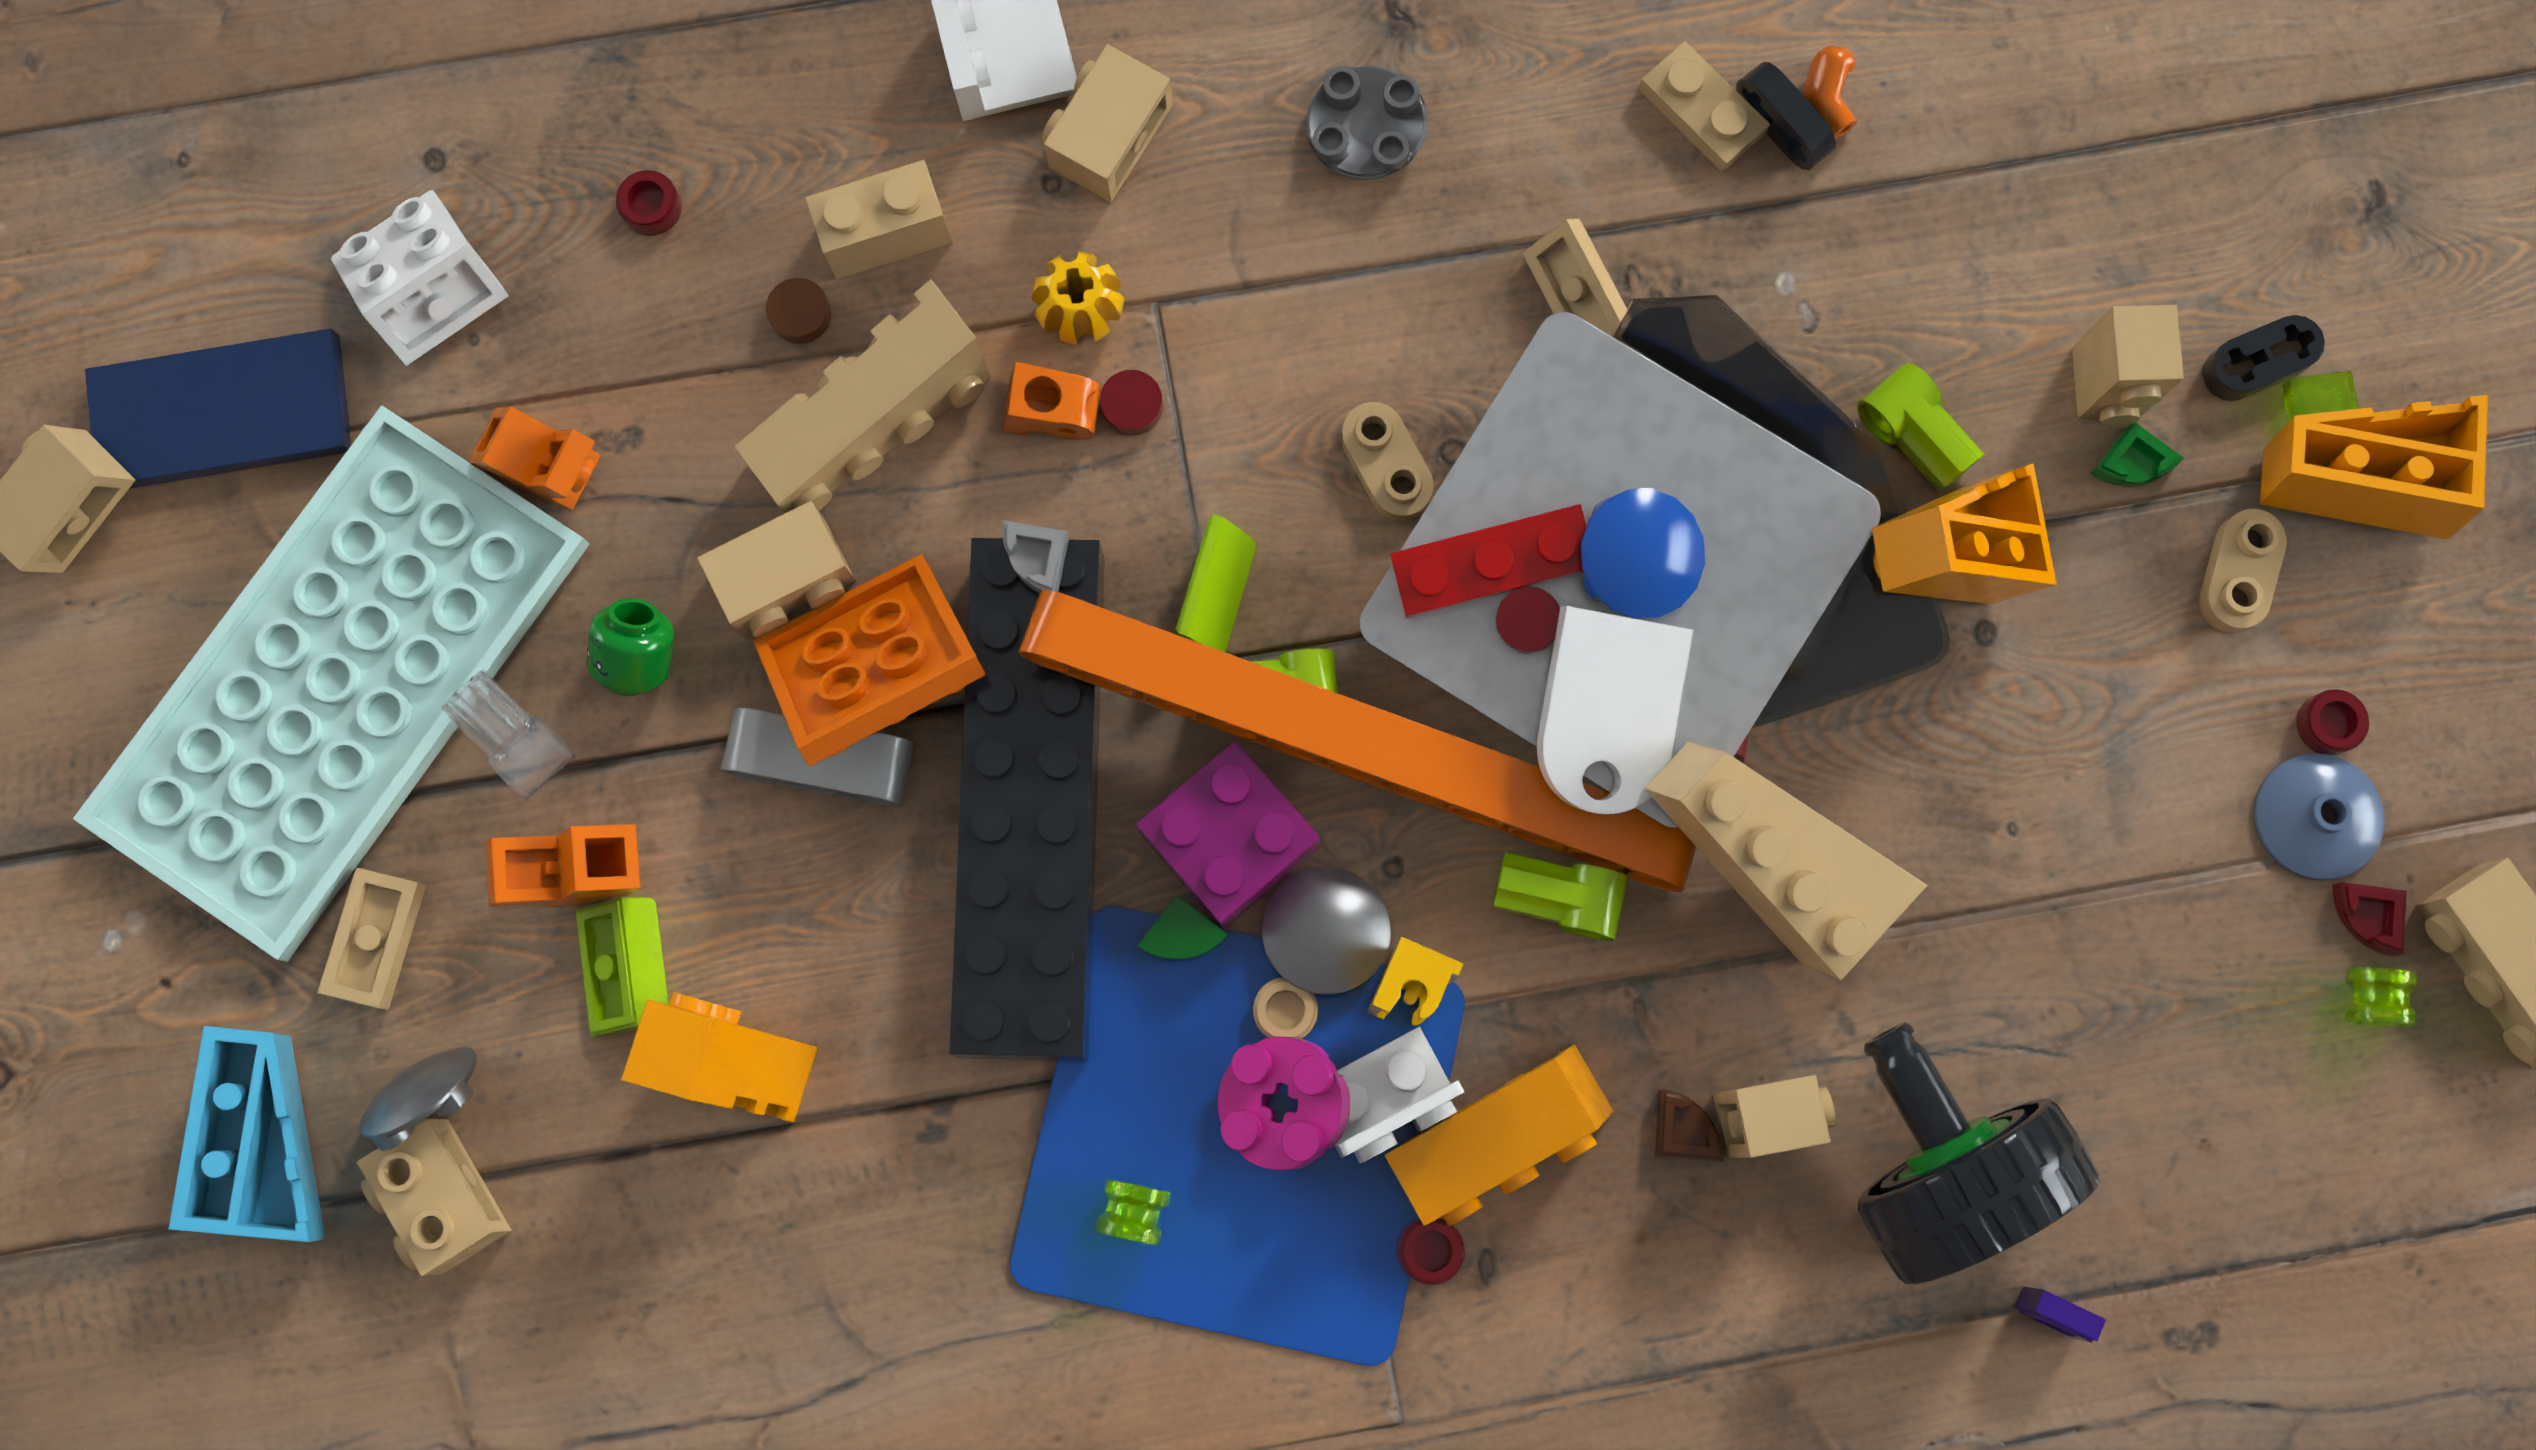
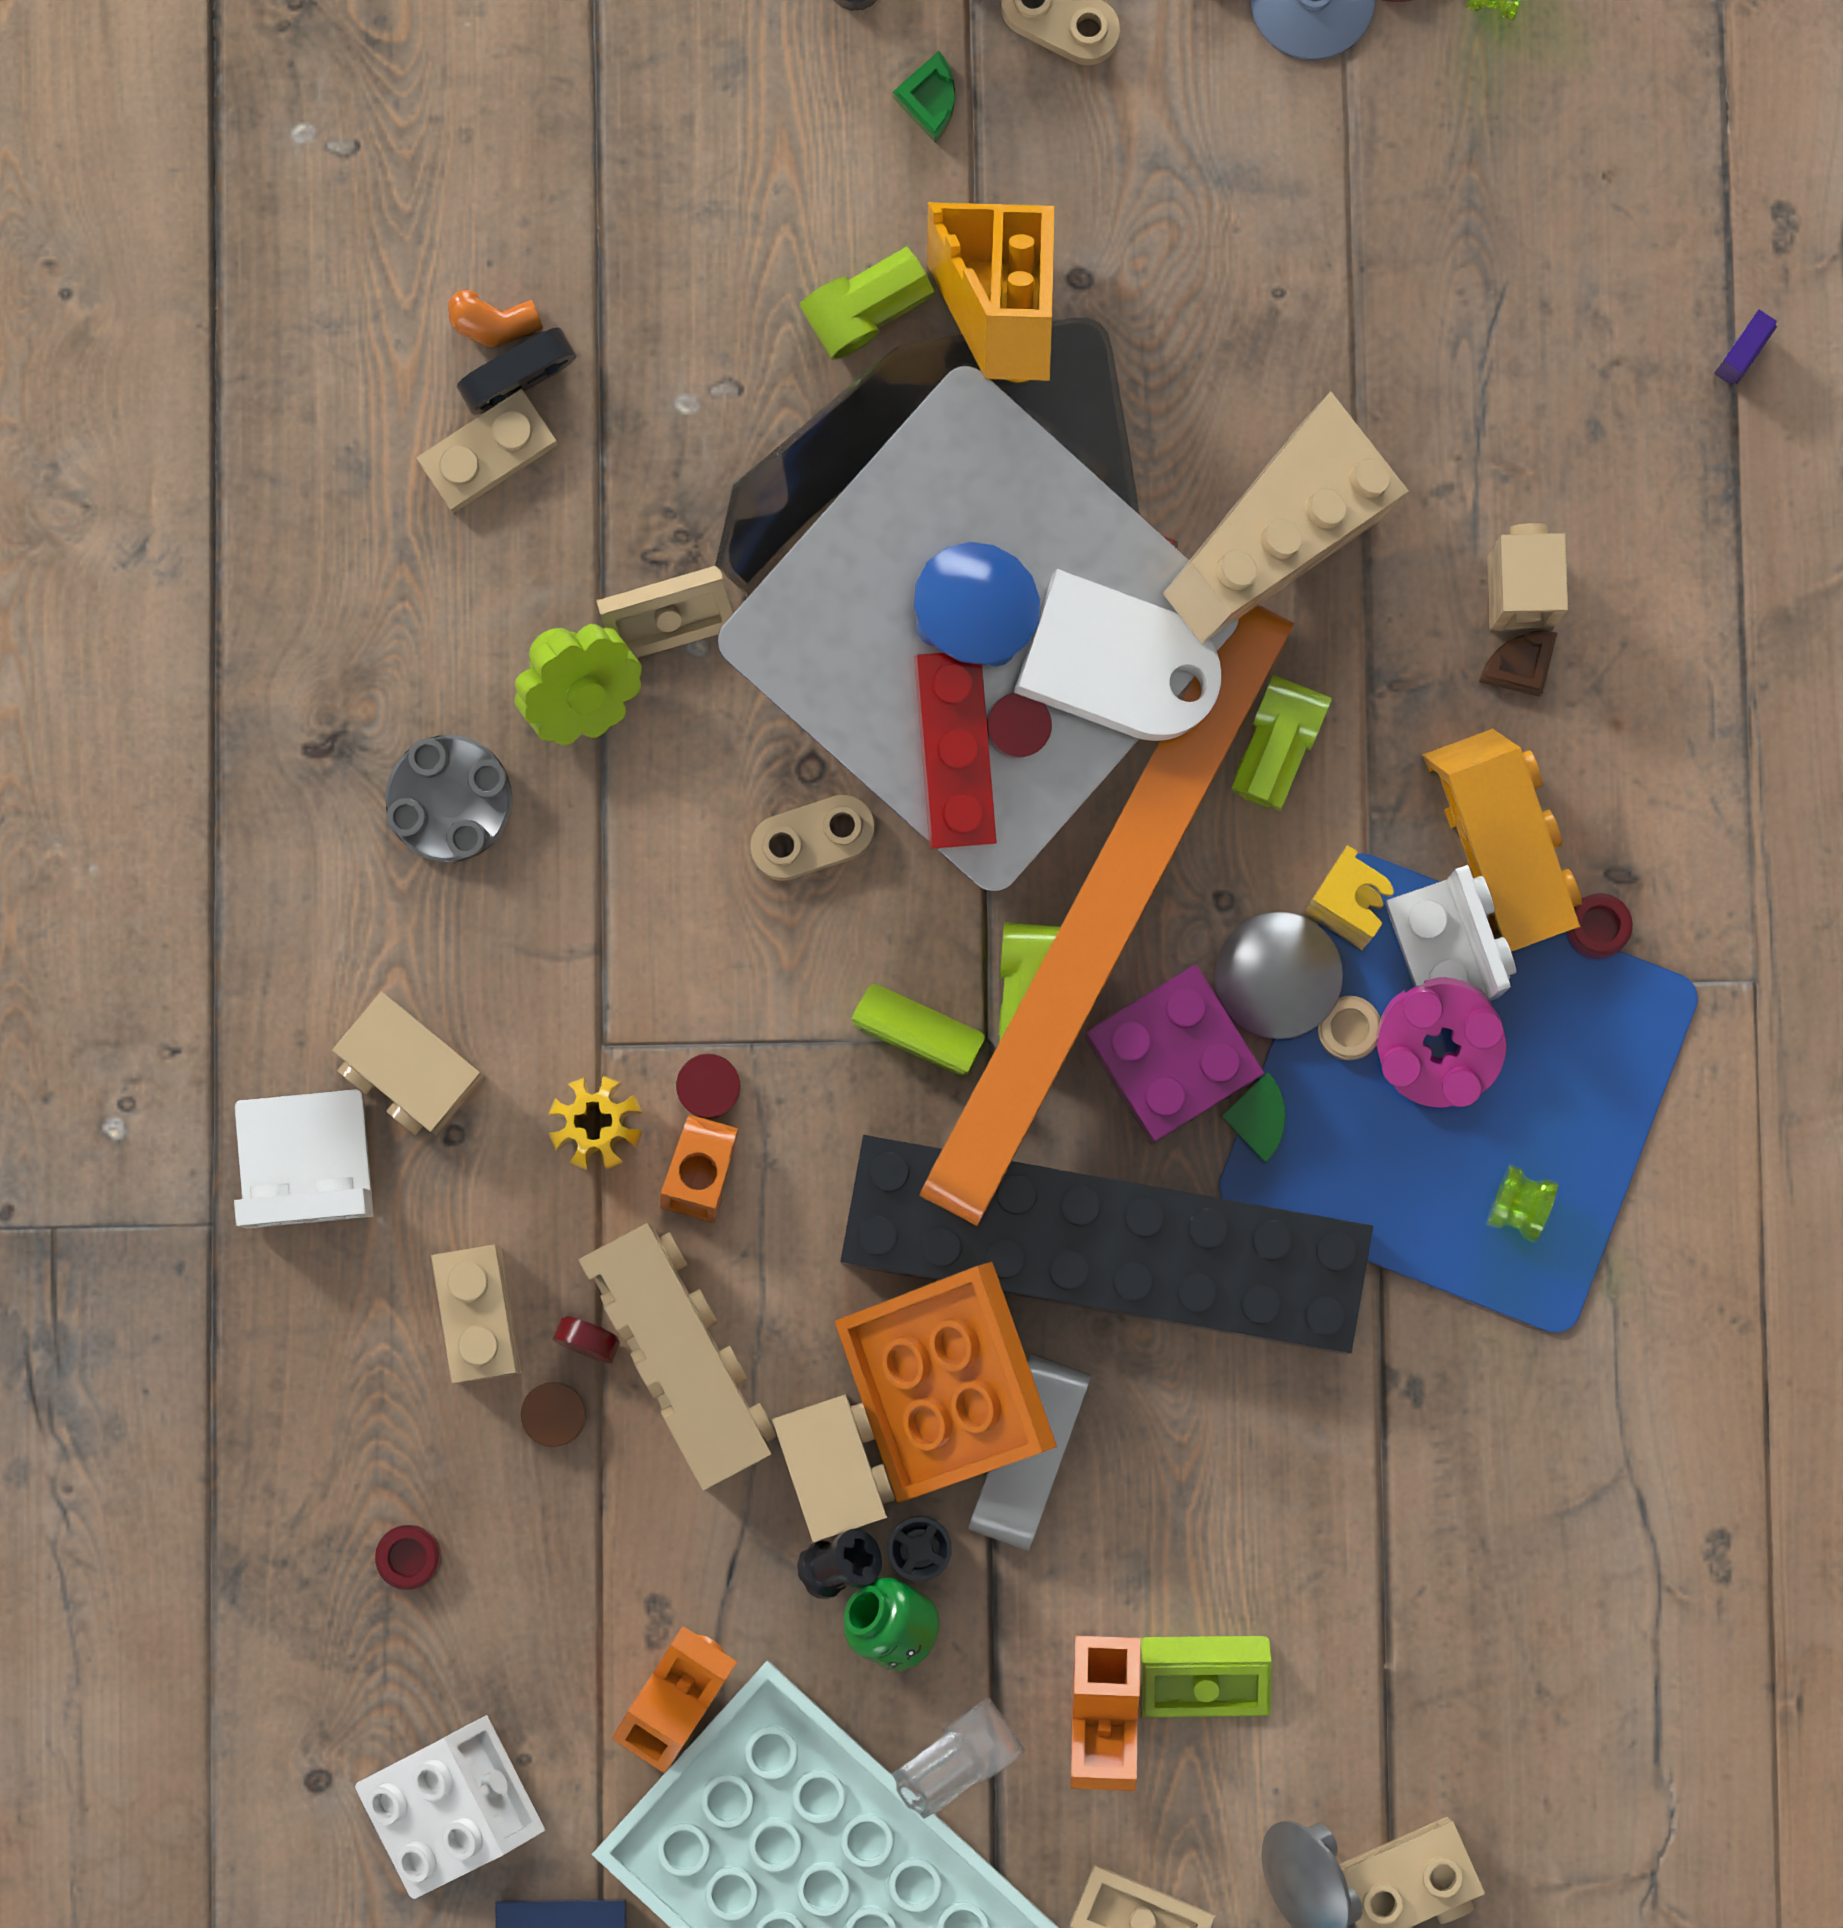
camera: 80 degrees left, 5 degrees up
(697, 659) = (915, 1556): none -> black wheel
(700, 598) = (848, 1560): none -> black bush
(710, 1058) = (1324, 1573): light orange wedge -> none
(871, 312) = (586, 1339): none -> dark red tile
(1036, 554) = (875, 1197): light grey tile -> none
(1495, 210) = (577, 683): none -> lime plant
(1969, 1182) = (1617, 408): black wheel -> none
(2127, 363) = (845, 91): tan brick -> none

